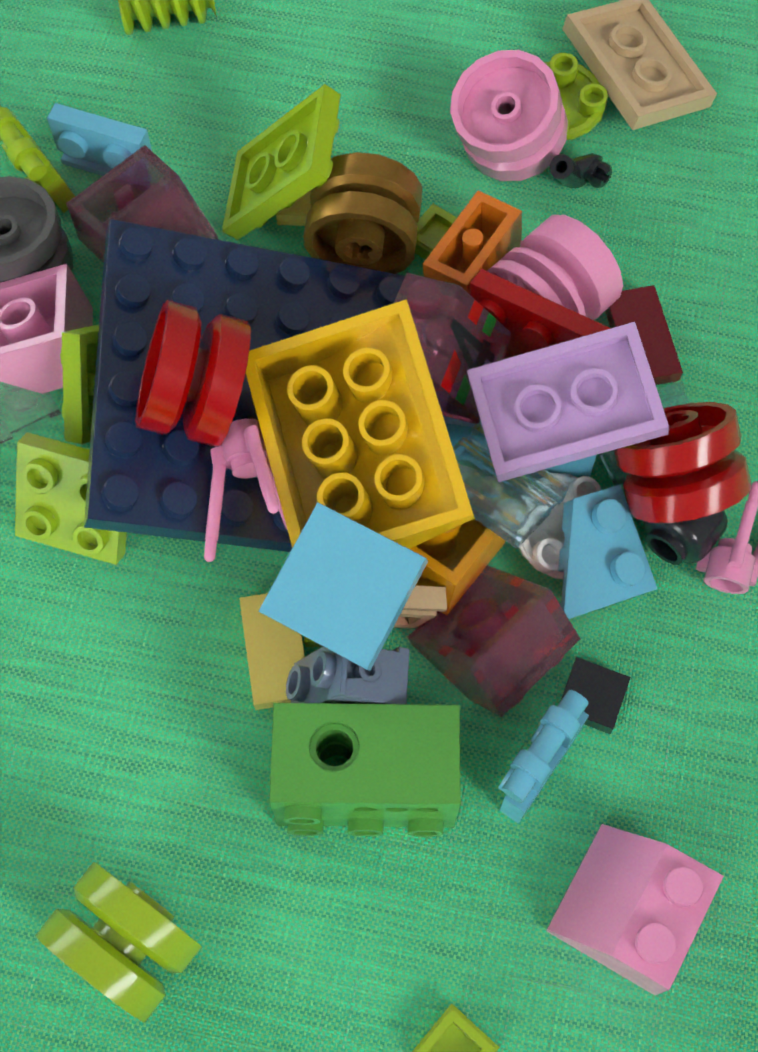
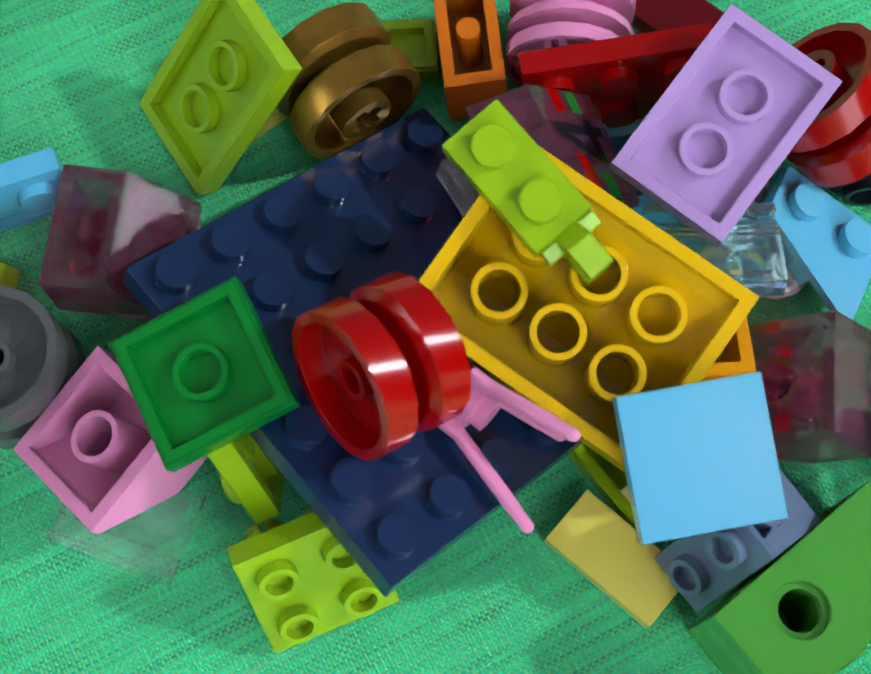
camera: 40 degrees left, 5 degrees up
(93, 309) = (204, 374): none -> green tile
(375, 334) = (528, 191): none -> lime hinge

